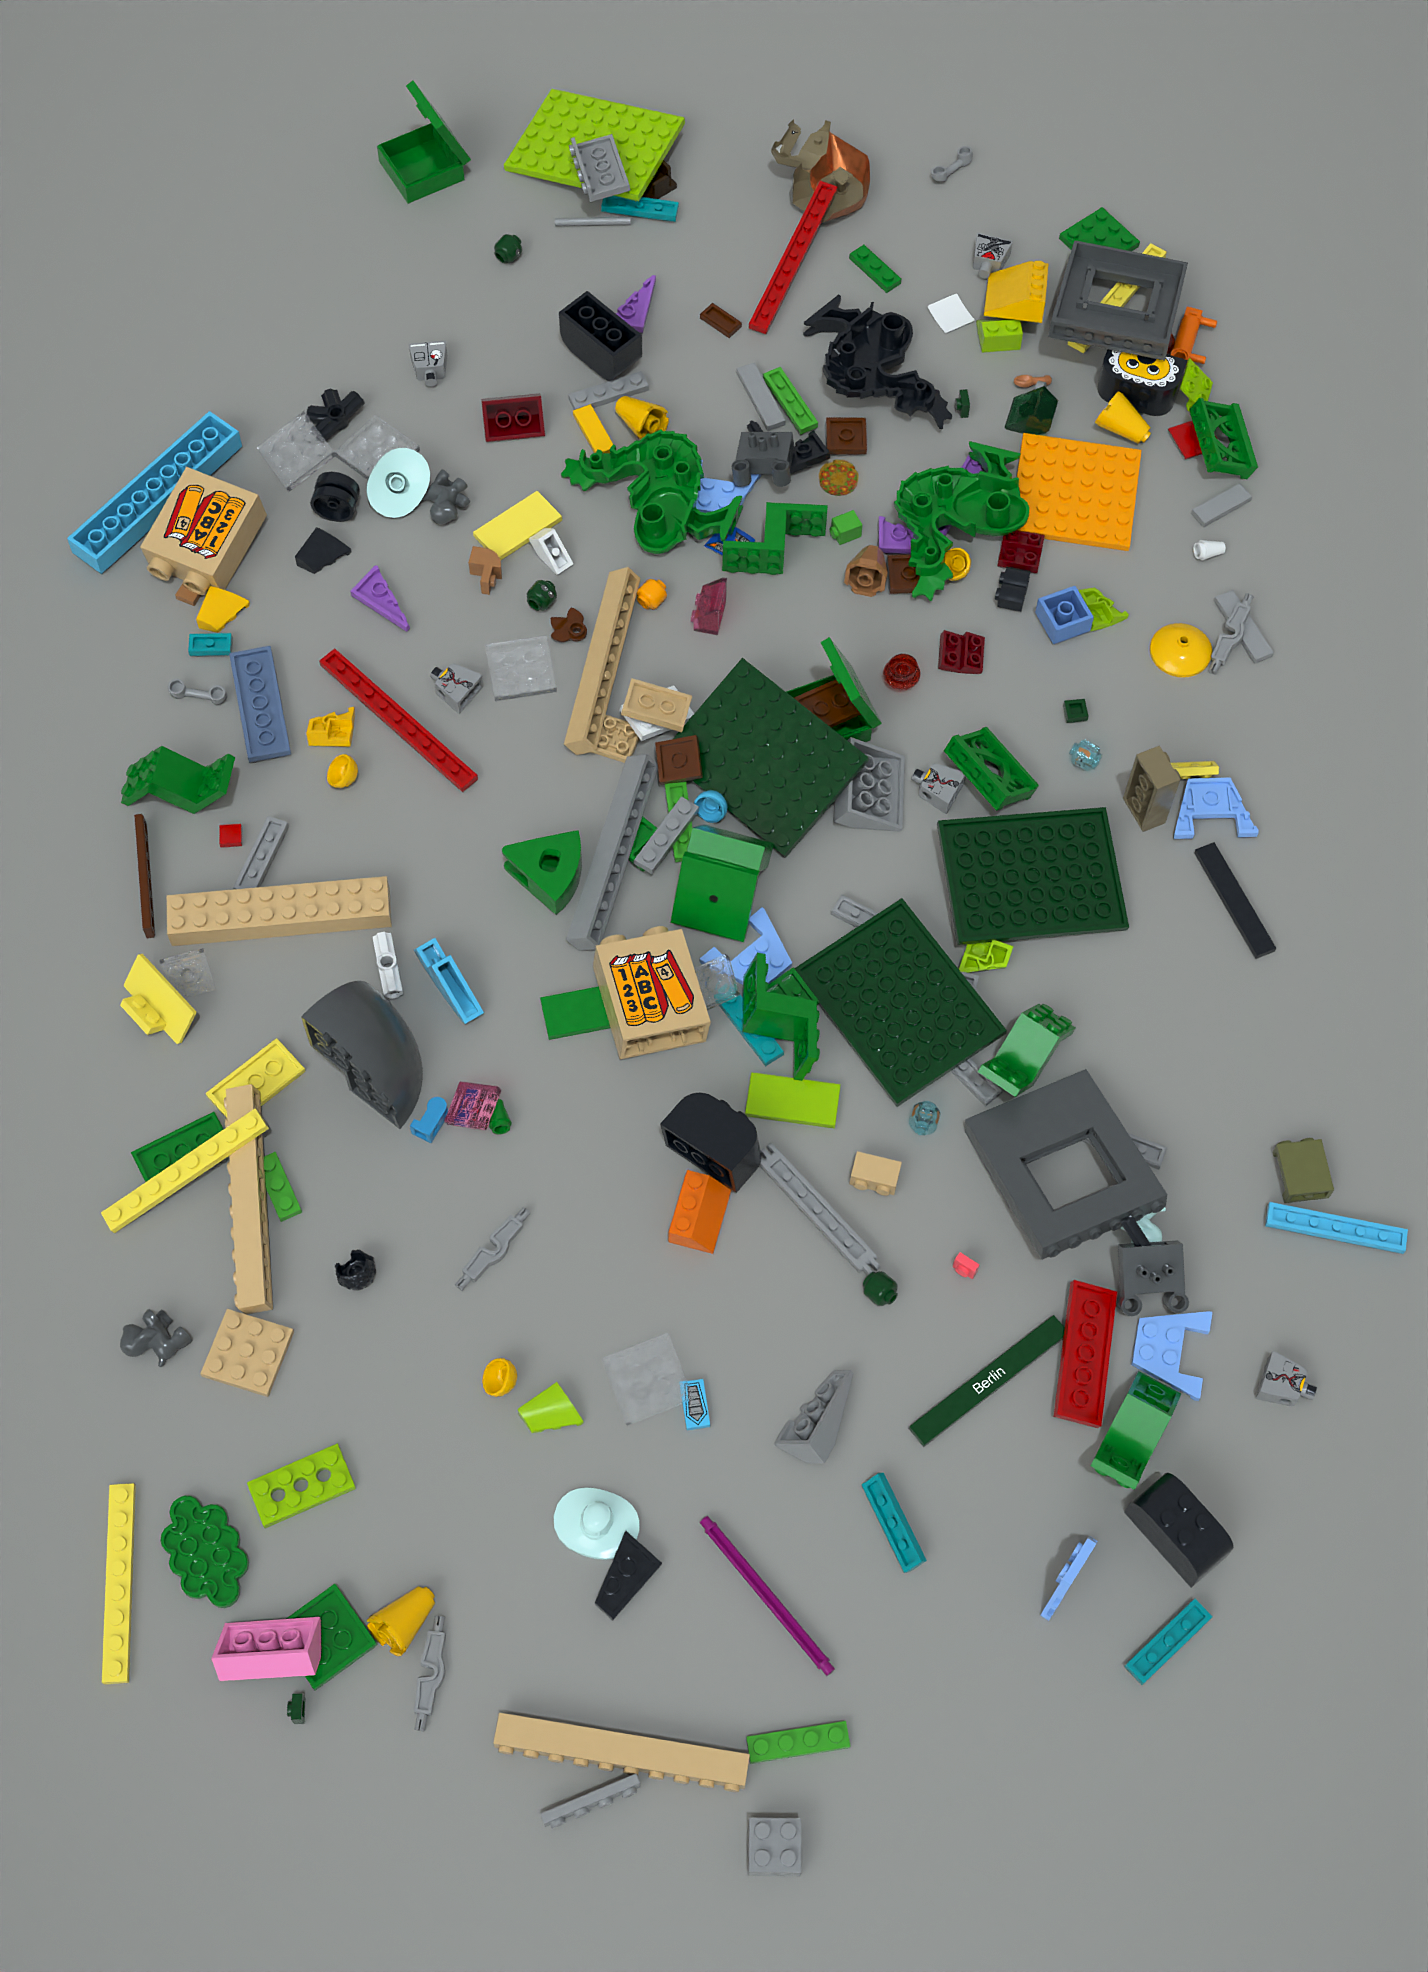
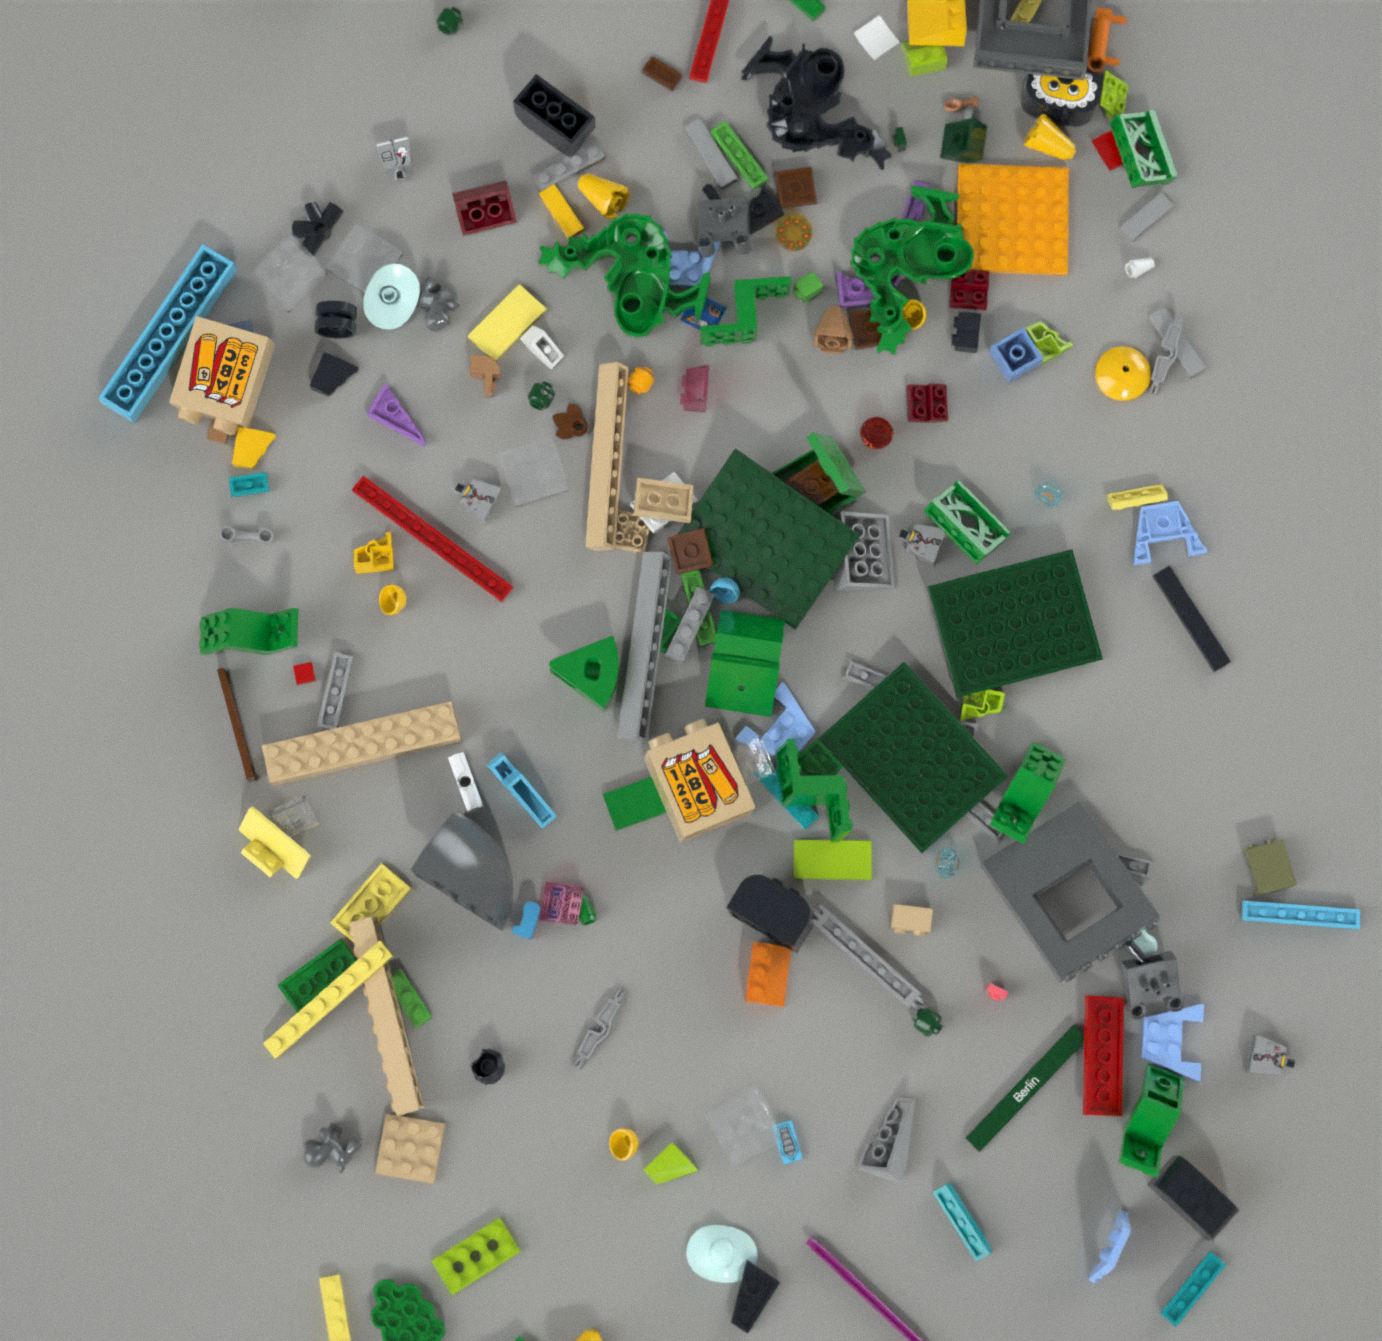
camera: 10 degrees left, 15 degrees up
(259, 704) = (305, 539): sand blue plate -> none
(637, 305) = (578, 78): medium lavender wing -> none
(1075, 710) = (1035, 450): dark green plate -> none
(1151, 788) = (1111, 530): dark tan brick -> none

